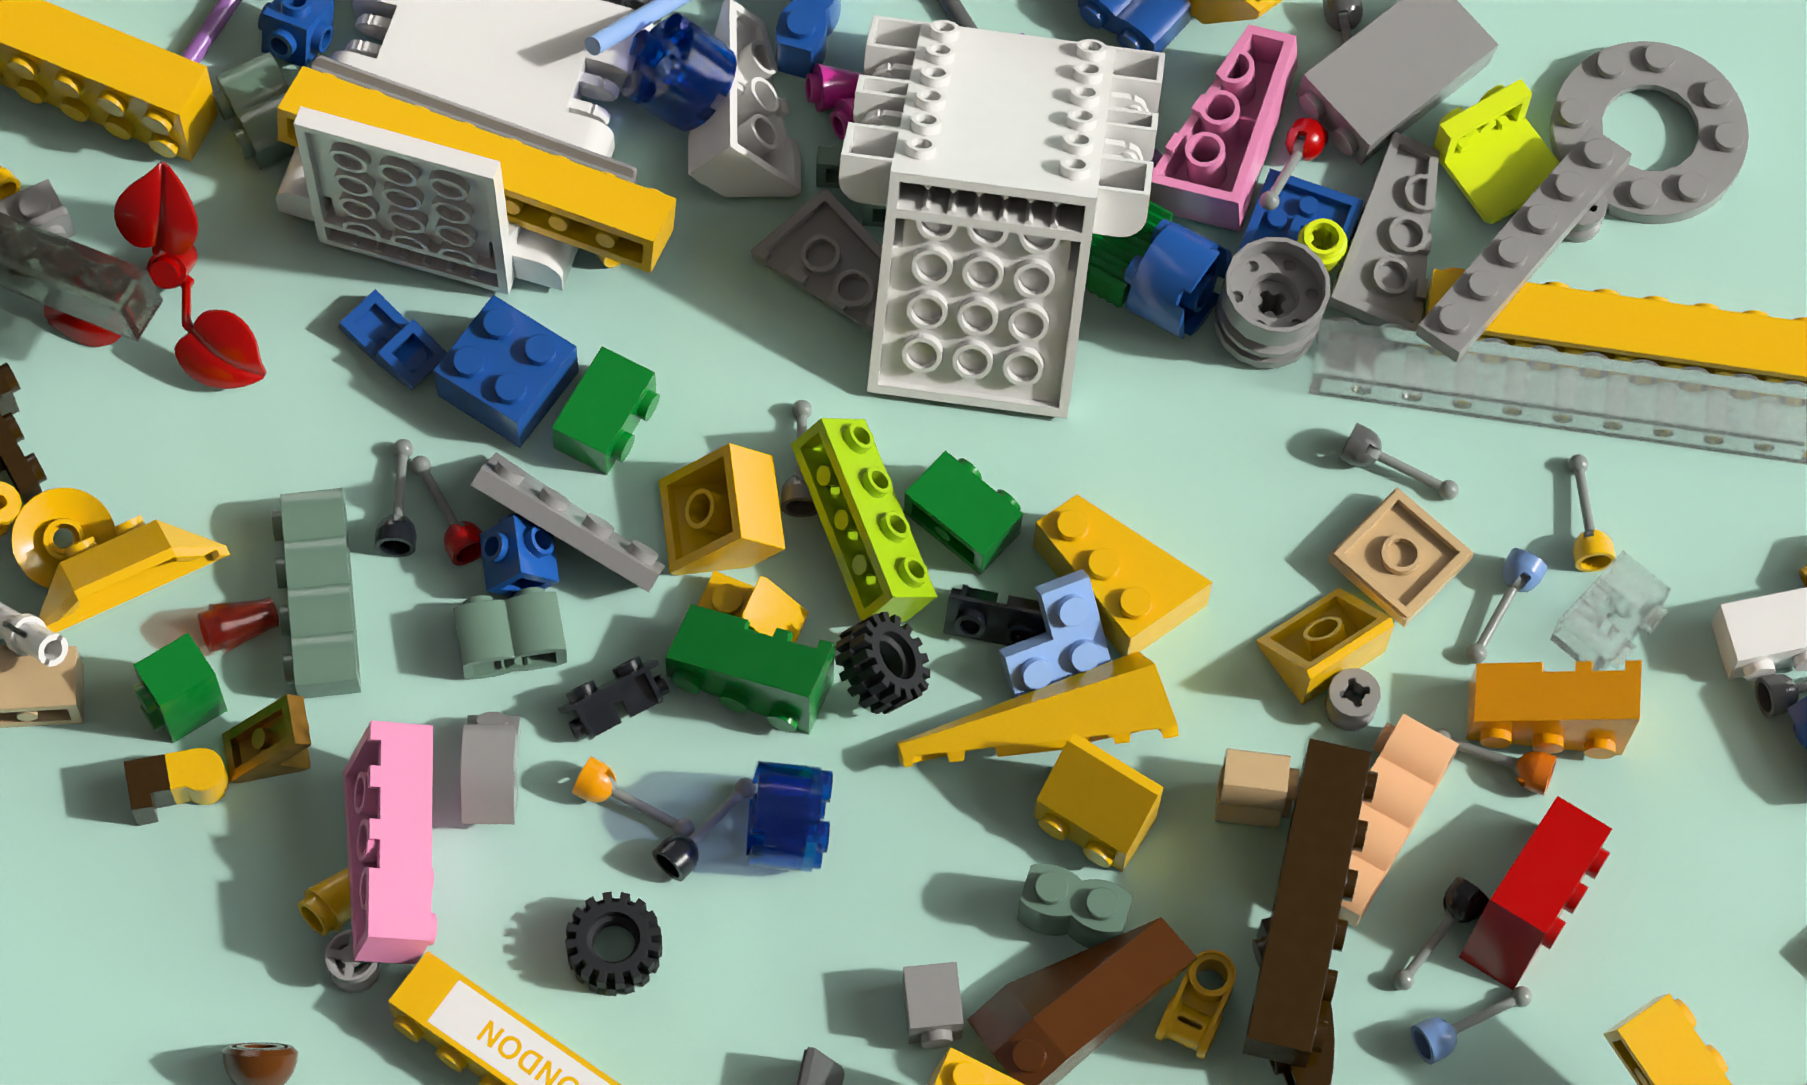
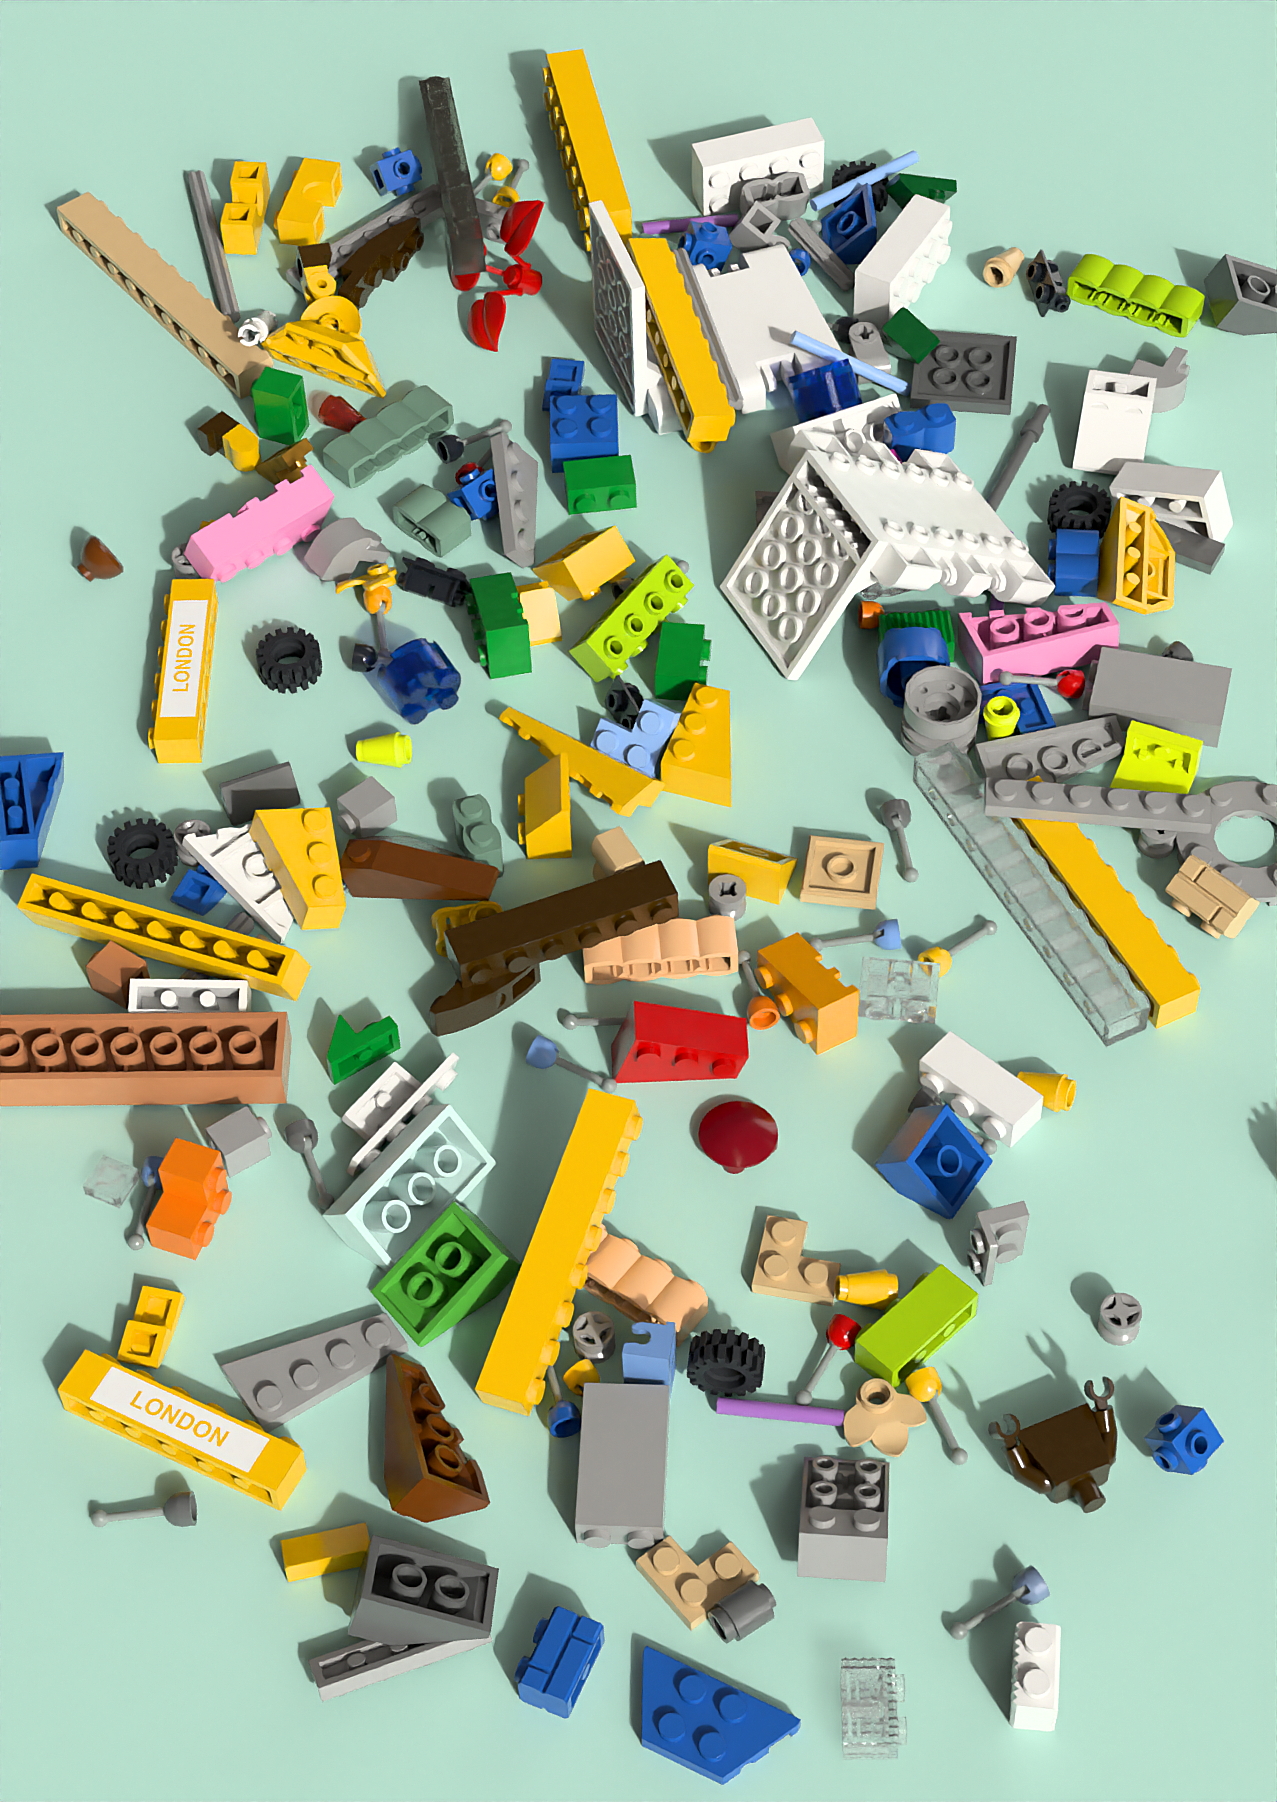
camera: 60 degrees right, 15 degrees down
(556, 767) = (377, 576): none -> yellow plate
(849, 923) = (385, 750): none -> neon yellow cone
(882, 663) = (566, 663): black tyre -> none
(1683, 908) = (738, 1135): none -> dark red dish
(1712, 225) = (1211, 897): none -> tan brick

